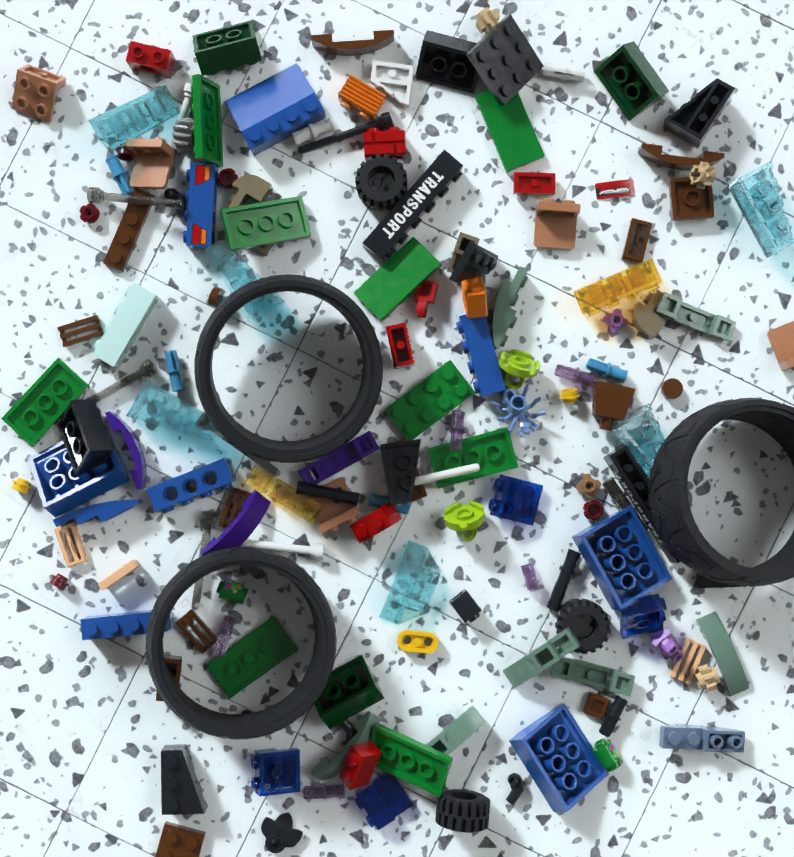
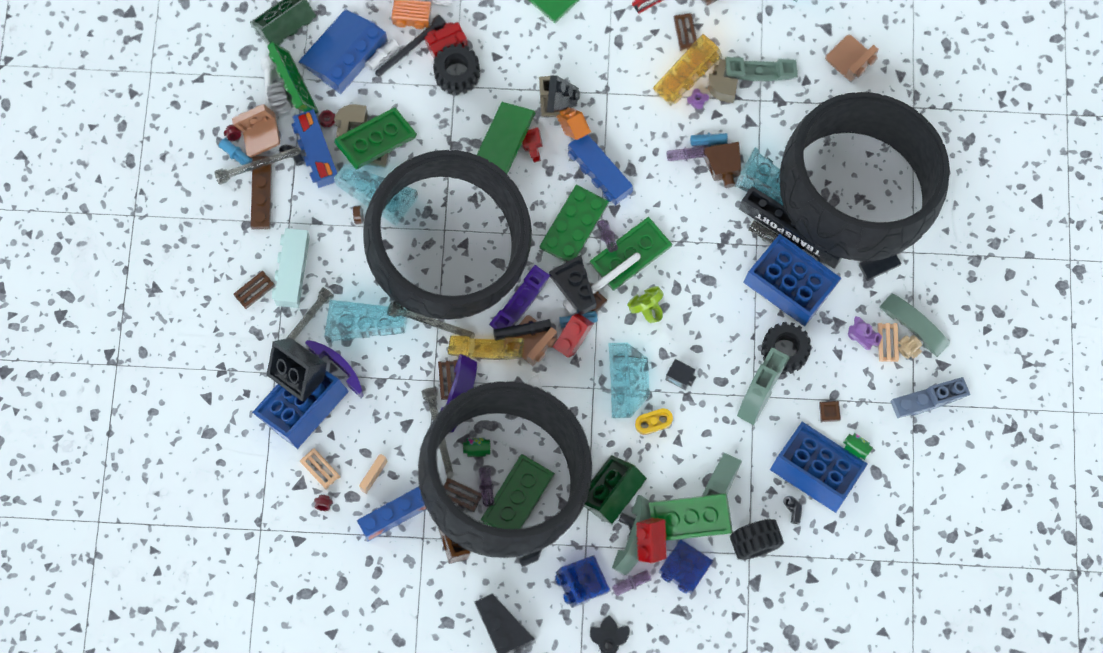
camera: 20 degrees left, 15 degrees down
(21, 485) = (256, 436): yellow plate -> none
(36, 92) = (138, 116): nougat bracket -> none
(45, 402) = (248, 359): green plate -> none
(95, 213) = (222, 197): dark red plate -> none
(104, 511) = (337, 425): blue slope -> none
(134, 117) = (230, 101): clear light blue wedge -> none
(150, 59) = (223, 52): red brick -> none
(159, 493) = (421, 349): blue brick -> none
(174, 371) = (348, 288): dark azure axle -> none
(400, 345) = (530, 188): red brick -> none
(413, 205) = (490, 78): black brick -> none
(504, 316) = (601, 124): sand green slope -> none
(515, 406) = (647, 196): medium blue animal -> none
(515, 499) = (682, 271): clear blue plate -> none
(518, 364) = (635, 164): lime tile -> none
(530, 576) = (723, 328): clear purple pin -> none
(534, 183) = (581, 21): red plate -> none
(556, 224) = (613, 44): nougat bracket -> none
(563, 580) = (752, 311): black pin -> none
(569, 395) = (688, 171): yellow plate -> none
(582, 487) = (733, 240): medium nougat plate -> none
(594, 675) = (814, 386): sand green slope -> none
(598, 510) = (751, 249): dark red plate -> none
(612, 716) = (847, 412): black axle -> none
(644, 618) = (832, 318): clear blue plate -> none
(671, 388) = (769, 132): reddish brown tile -> none

